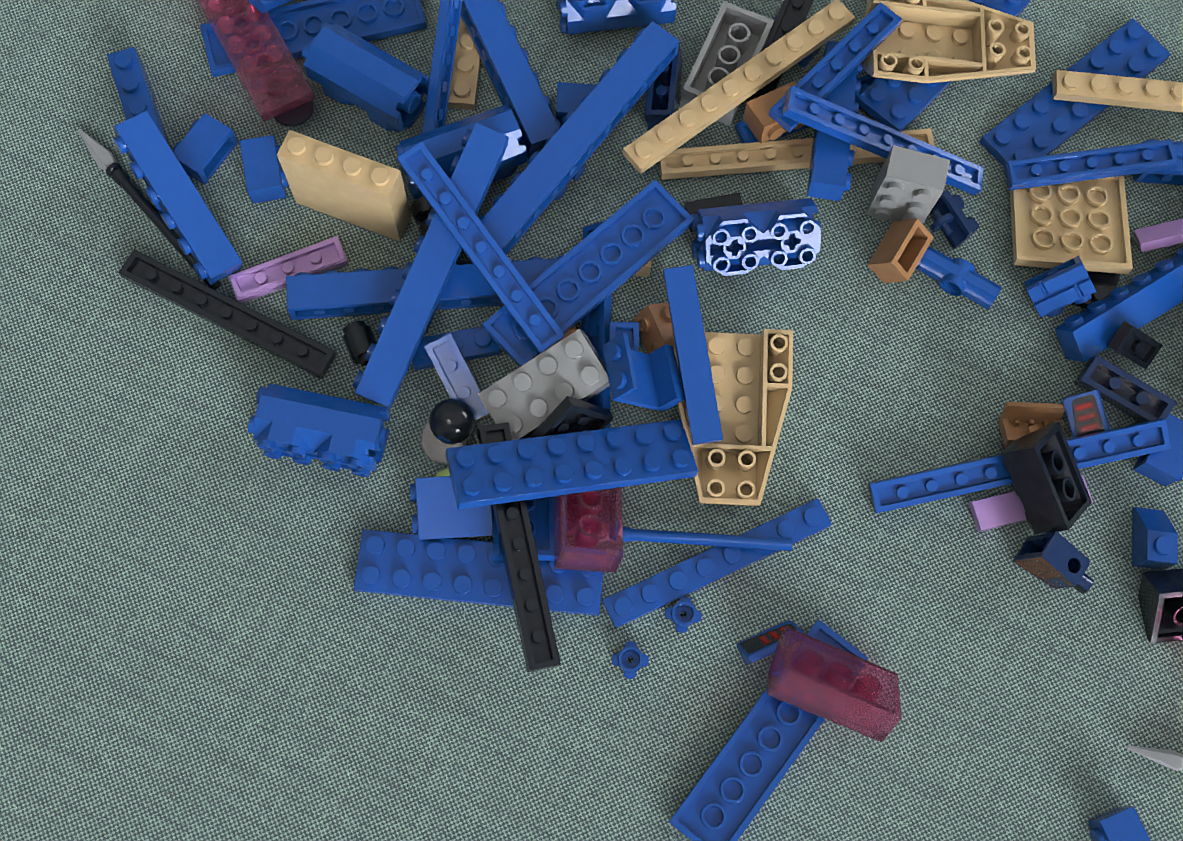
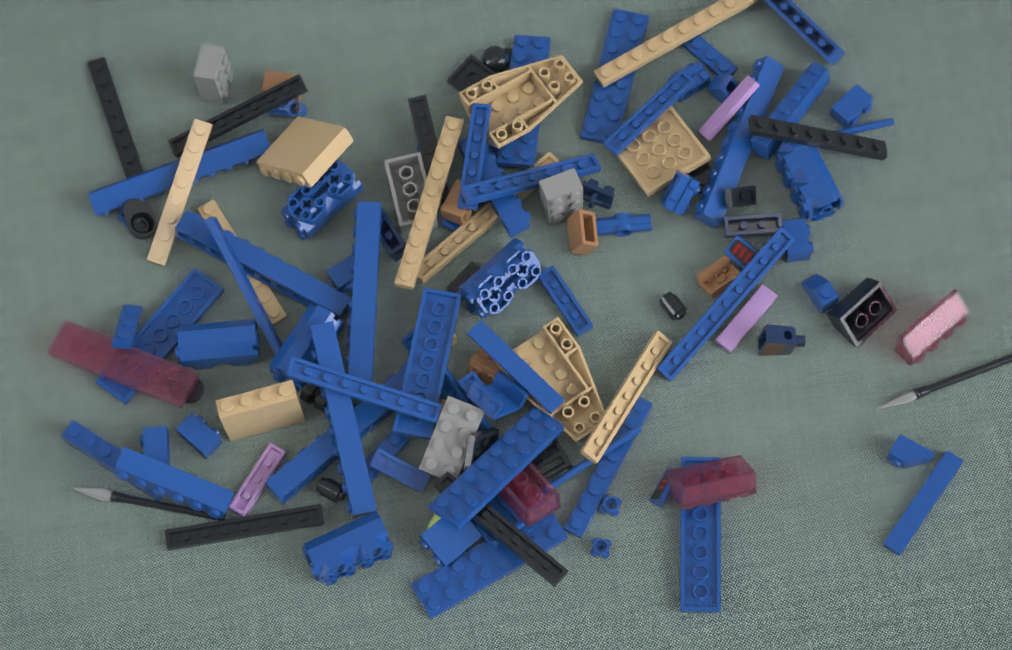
camera: 25 degrees left, 5 degrees down
(447, 427) = (414, 501): black cap -> none
(653, 494) = (550, 454): none -> black plate
(802, 492) = (625, 397): none -> tan plate
(816, 319) = (565, 301): none -> blue plate
(947, 421) = (673, 306): none -> black brick
(1047, 479) = (744, 300): black slope -> none

